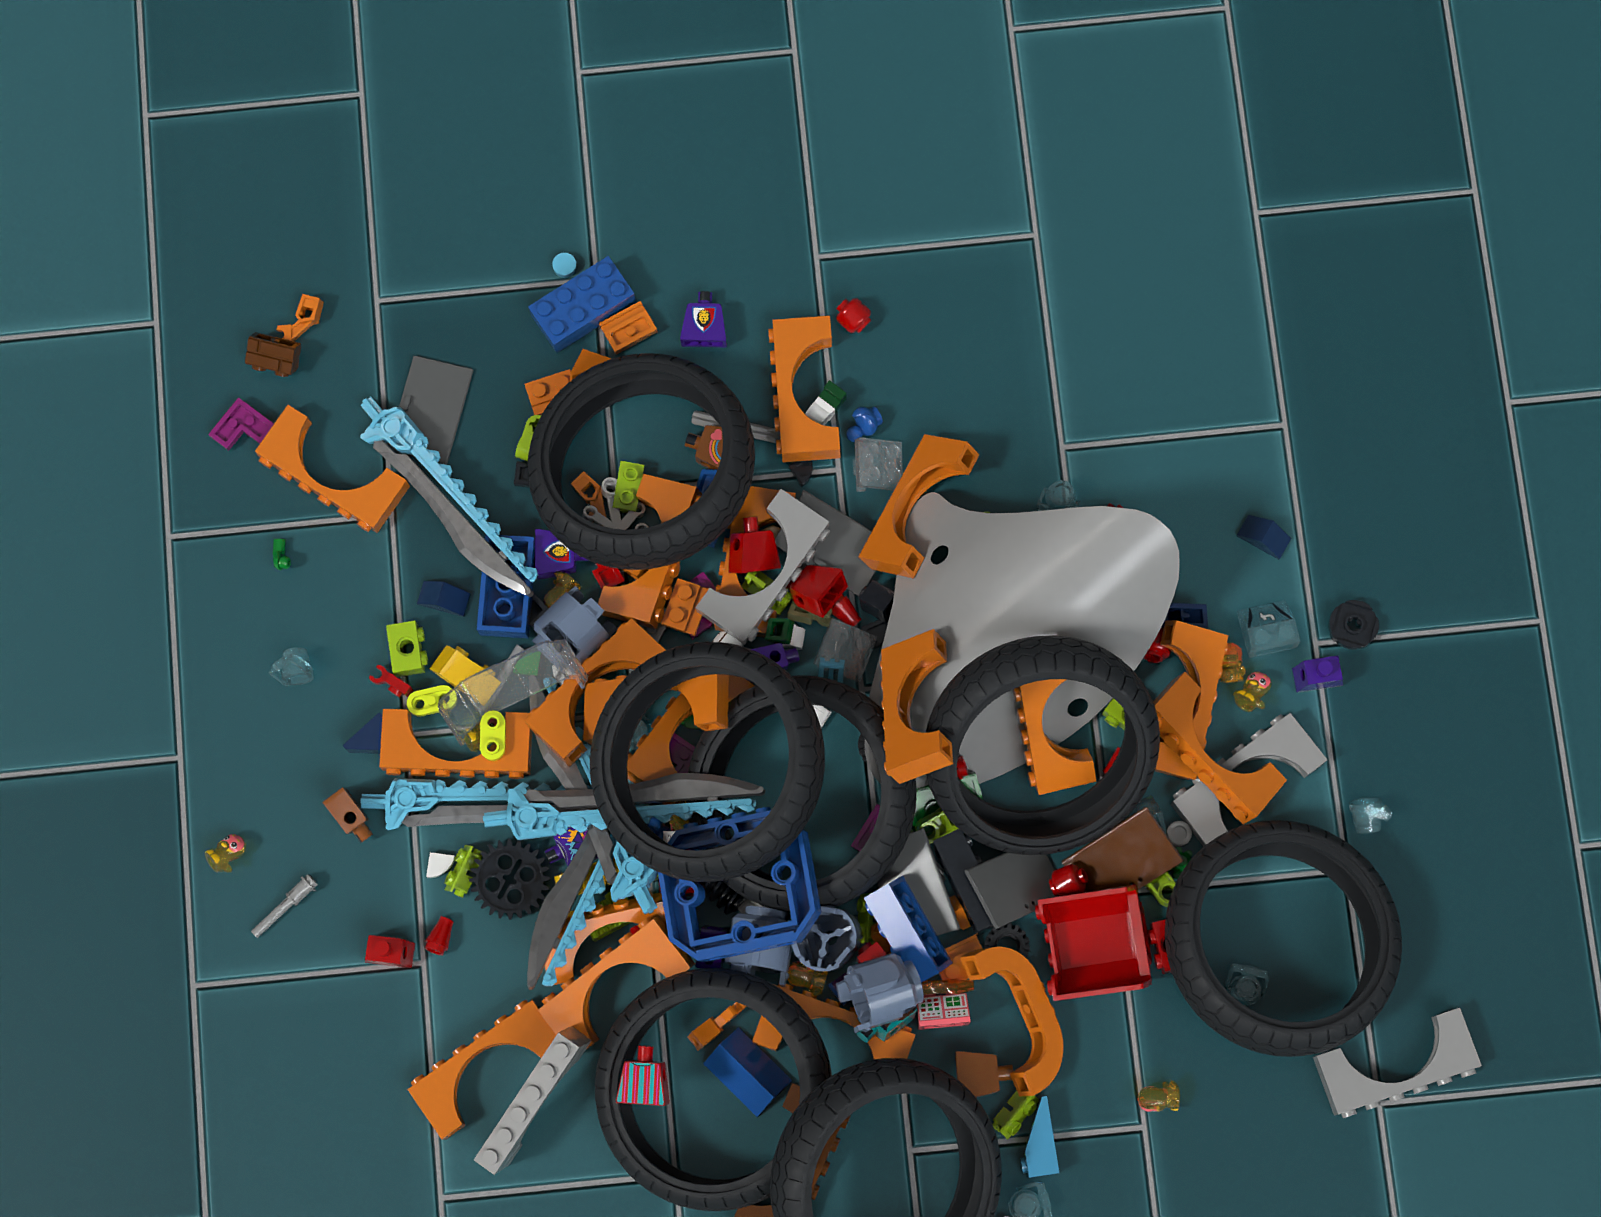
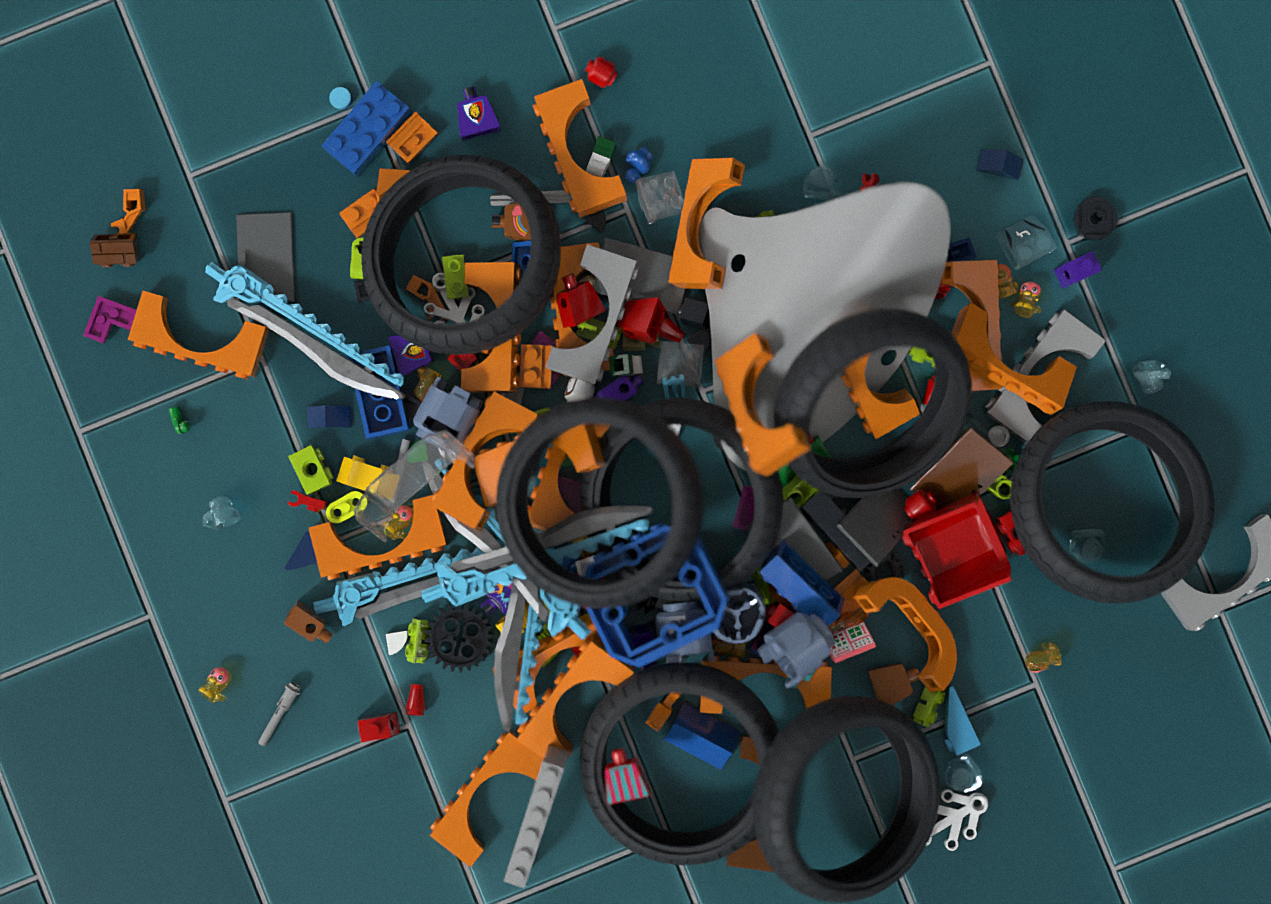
camera: 20 degrees left, 10 degrees up
(493, 735) = (409, 523): neon yellow plate -> none

